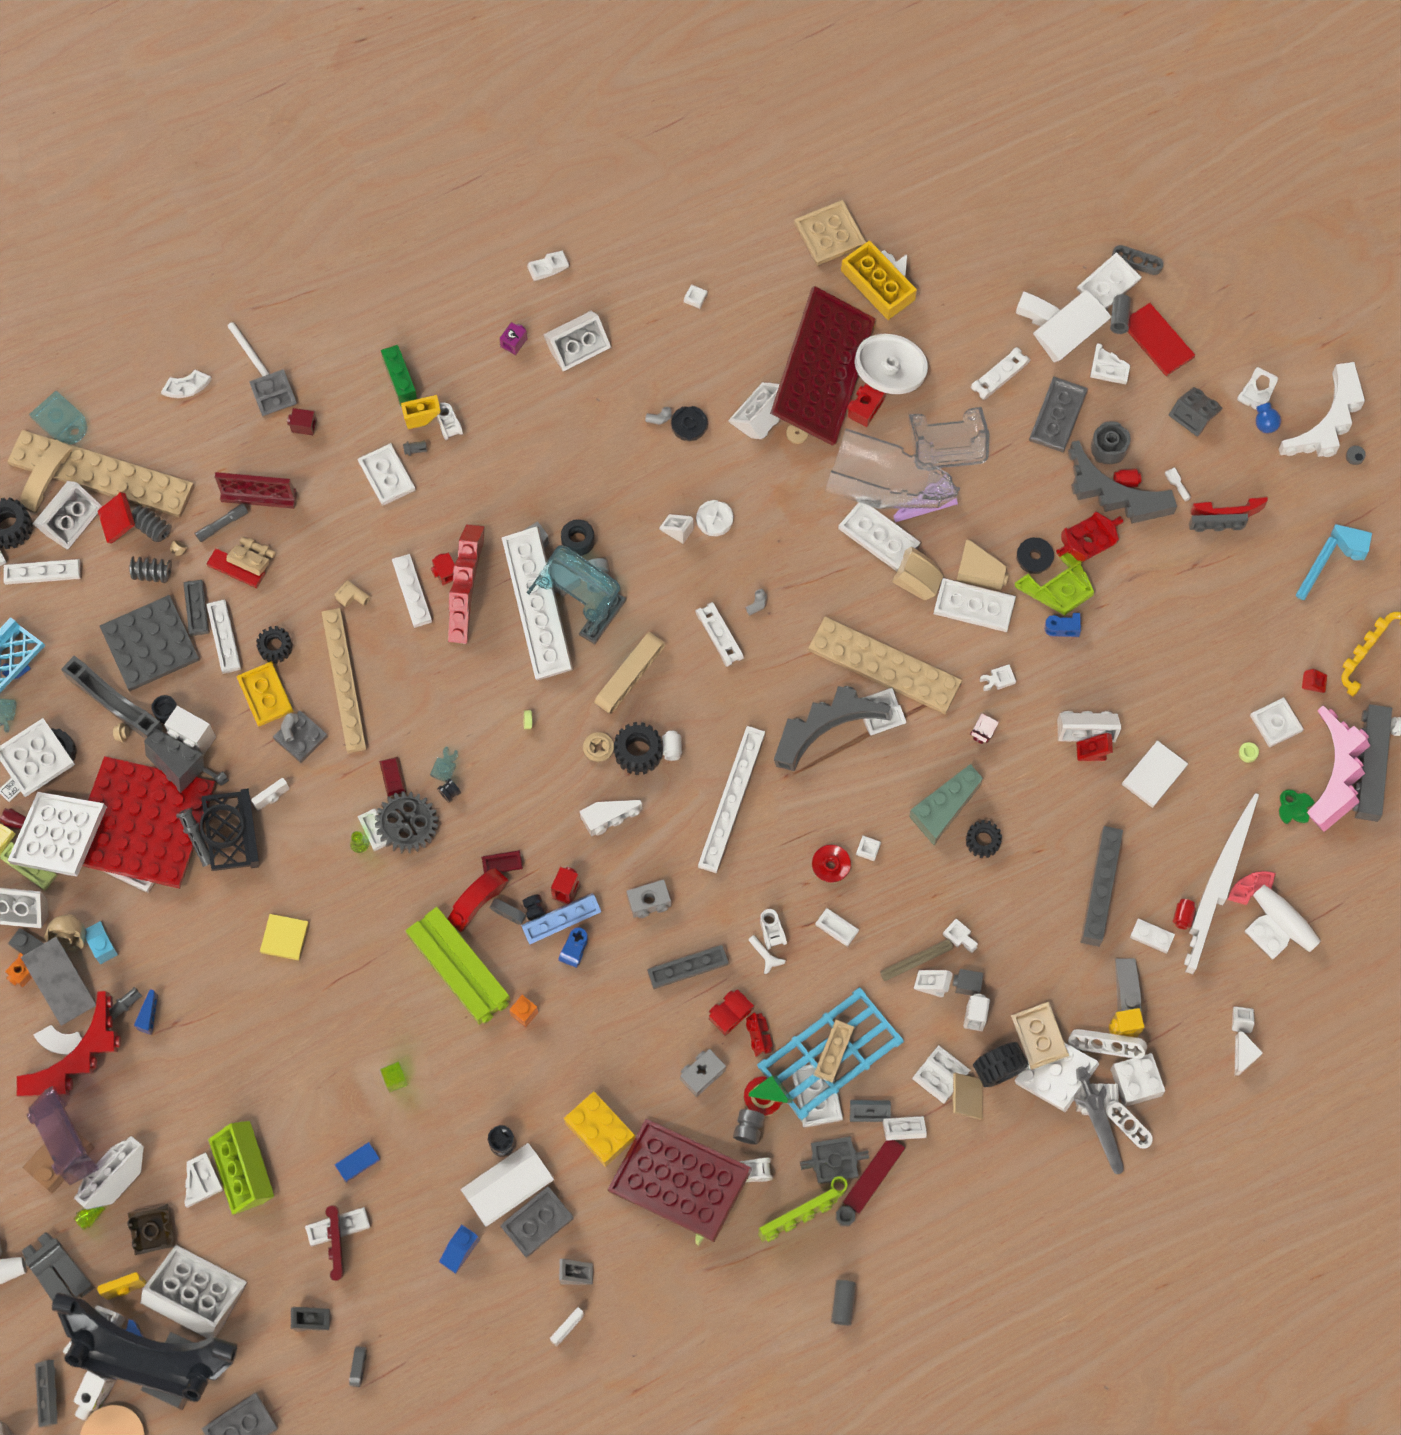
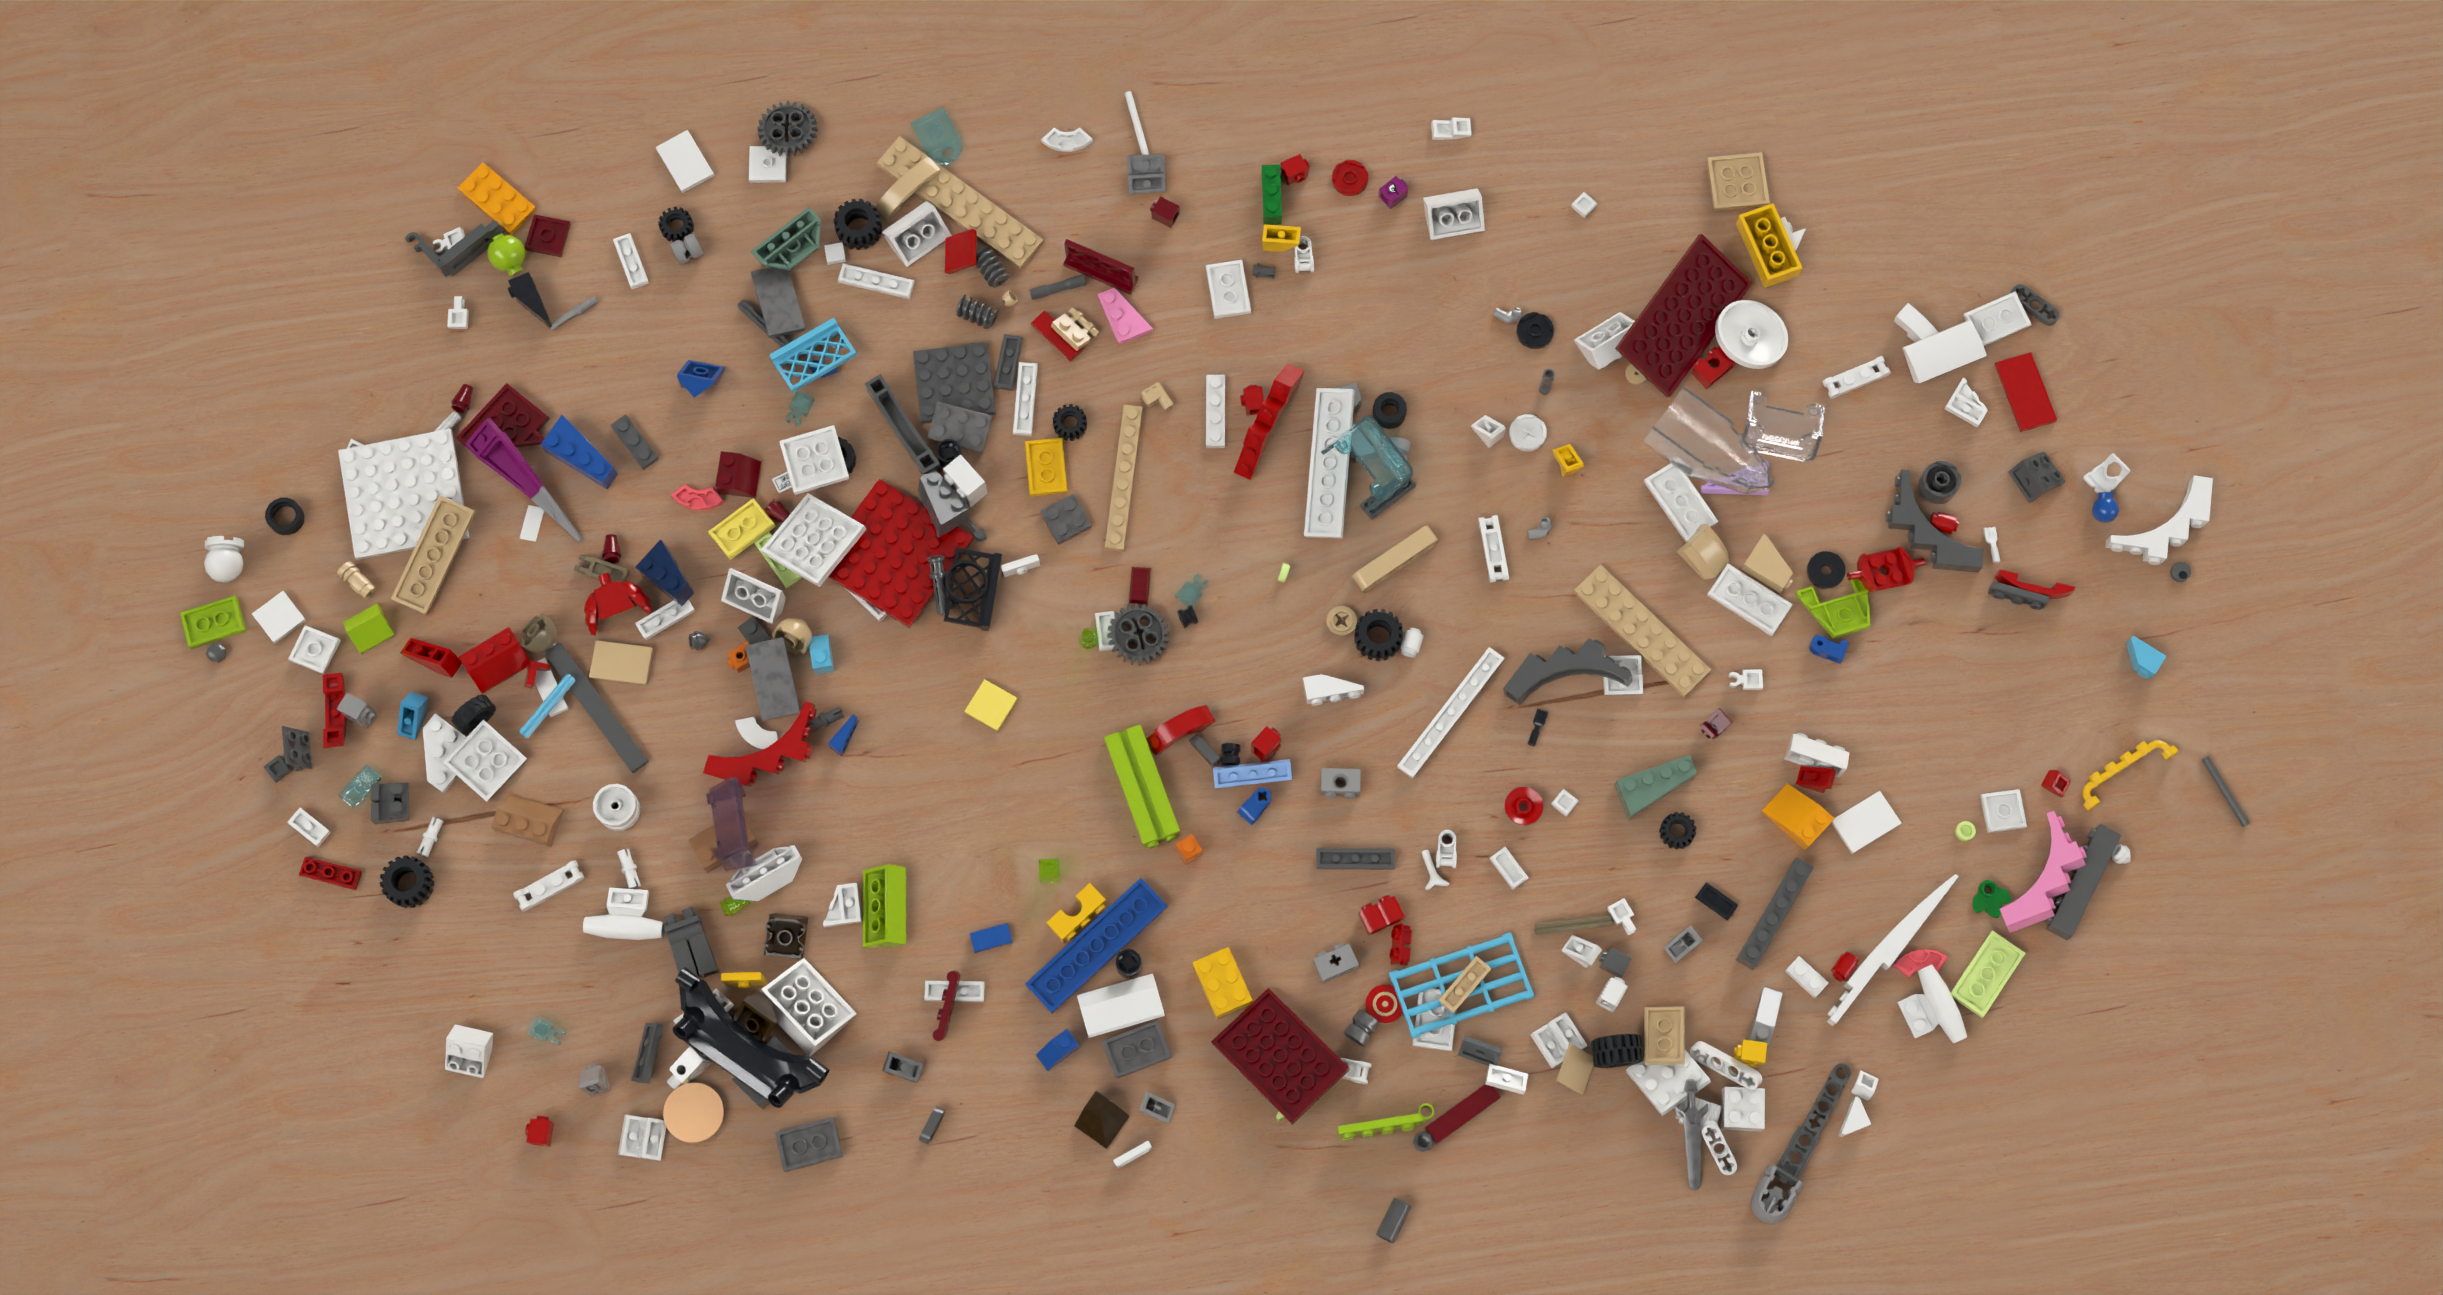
camera: 20 degrees right, 5 degrees up
(121, 732) = (901, 461): tan plate -> none
(146, 1317) = (756, 1016): none -> dark brown slope
(169, 679) = (960, 424): none -> flat silver plate
(286, 725) = (1059, 501): light grey arm -> none
(293, 531) = (1122, 317): none -> bright pink wing
(413, 345) = (1294, 169): none -> red brick
(427, 1125) = (1066, 926): none -> yellow arch
(463, 1135) = (1096, 945): none -> blue plate
(468, 338) = (1350, 178): none -> red tile
(503, 862) = (1215, 701): dark red tile -> none
(524, 1303) = (1101, 1119): none -> dark brown slope
(717, 459) = (1545, 385): none -> flat silver bar
(761, 530) = (1568, 460): none -> yellow slope
(772, 1090) = (1394, 1002): green slope -> none
(817, 781) = (1539, 721): none -> black piece
(834, 1159) = (1430, 1086): dark grey plate -> none
(1026, 943) = (1683, 944): none -> light grey slope
(1043, 893) = (1716, 901): none -> black tile
(1058, 414) = (1899, 436): flat silver tile -> none
(1090, 788) = (1798, 816): none -> light orange slope
(1120, 314) = (1996, 355): dark grey pin -> none
(1199, 1124) = (1787, 1170): none -> dark grey piece
(1316, 568) = (2099, 672): medium azure axle -> none
(1317, 877) = (1987, 974): none -> yellowish green plate

